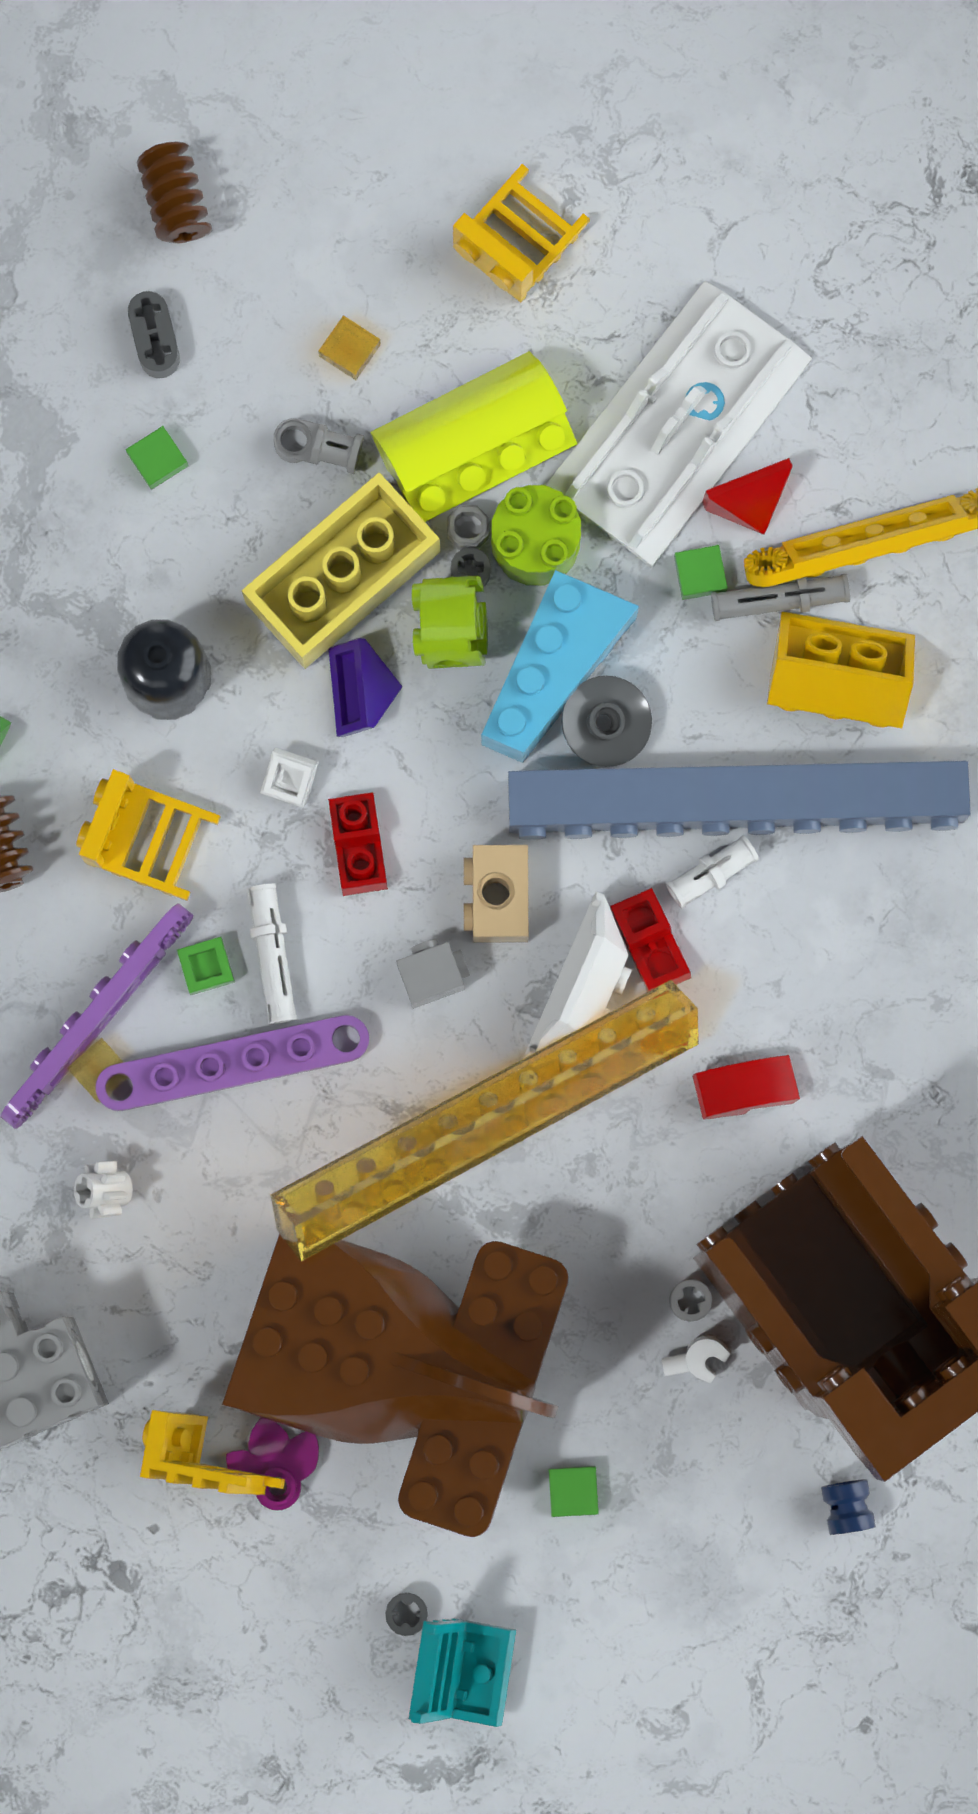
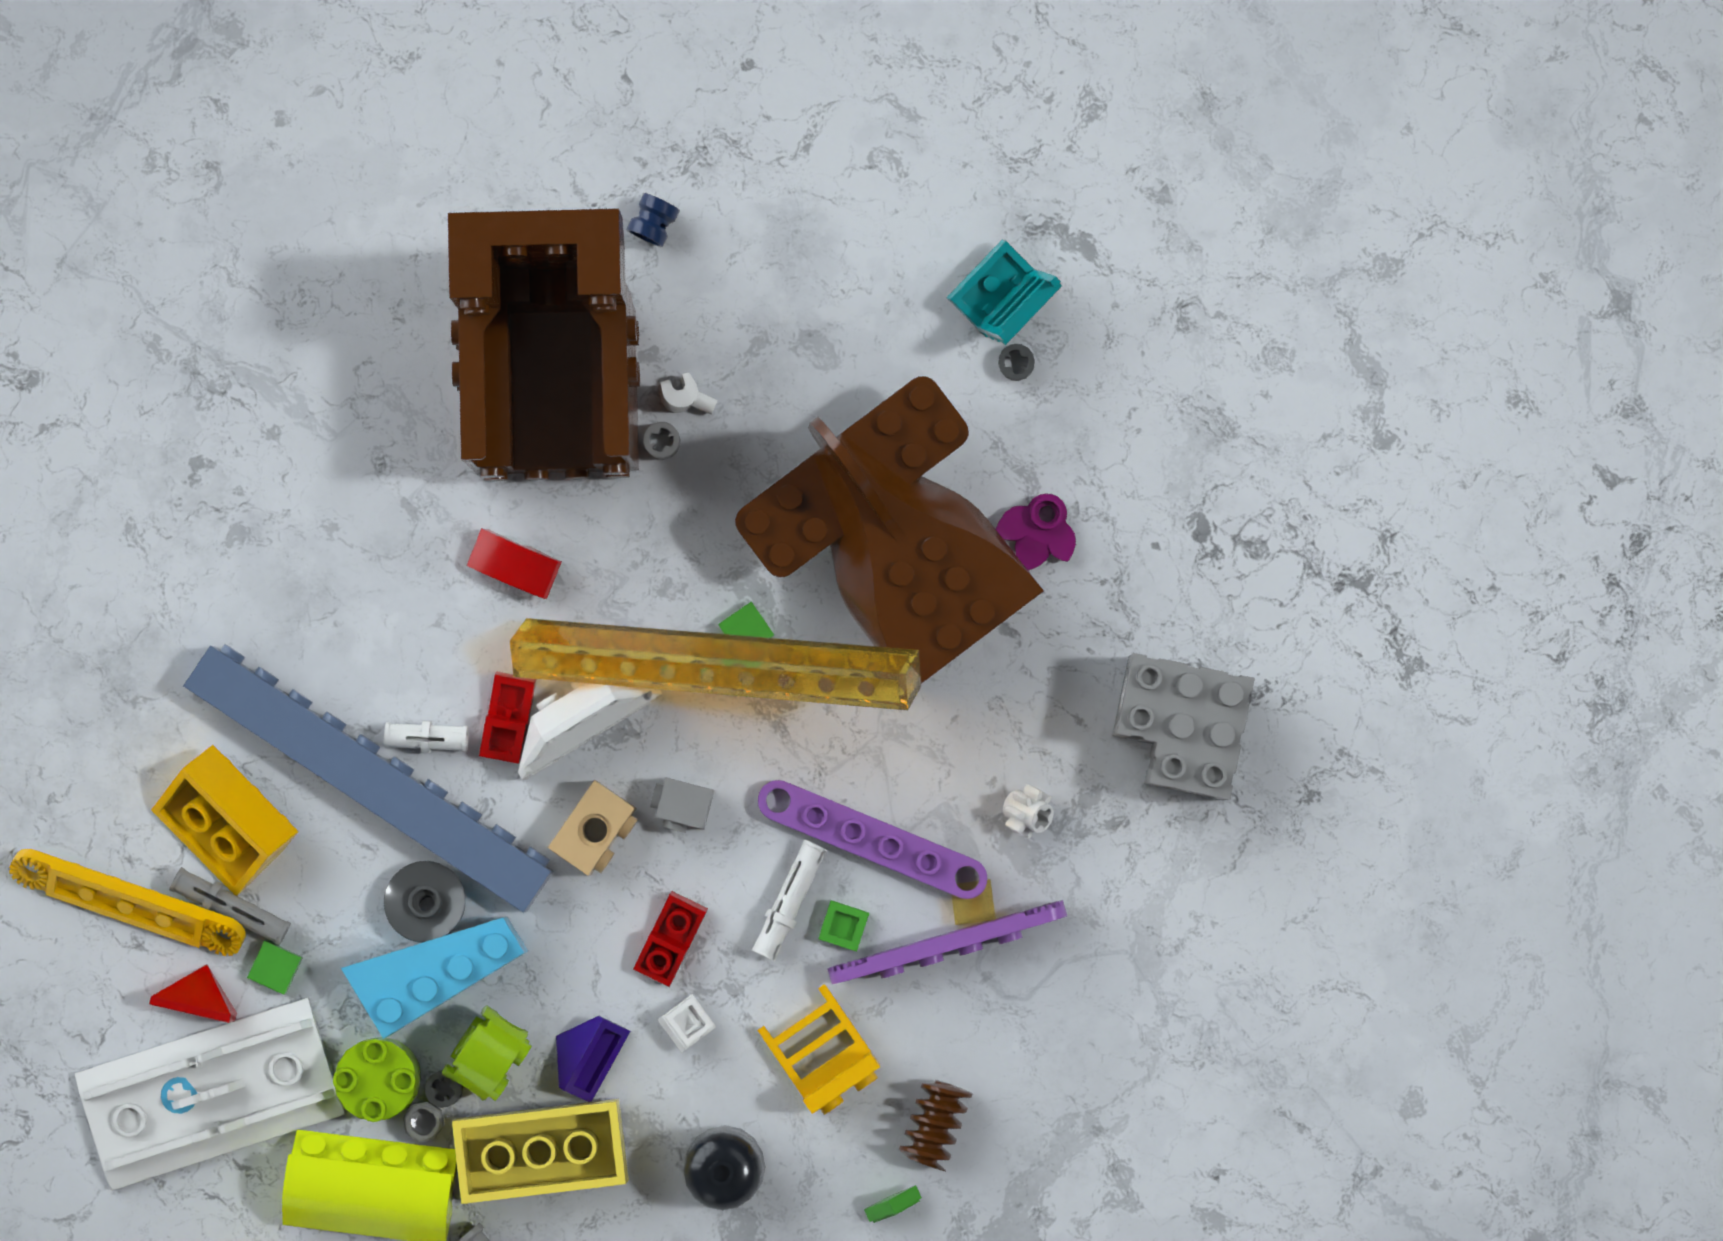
camera: 140 degrees left, 5 degrees up
(174, 1453) = (1104, 585): yellow plate -> none
(488, 1180) = (746, 622): none -> bright green tile
(573, 1491) = (839, 365): bright green tile -> none

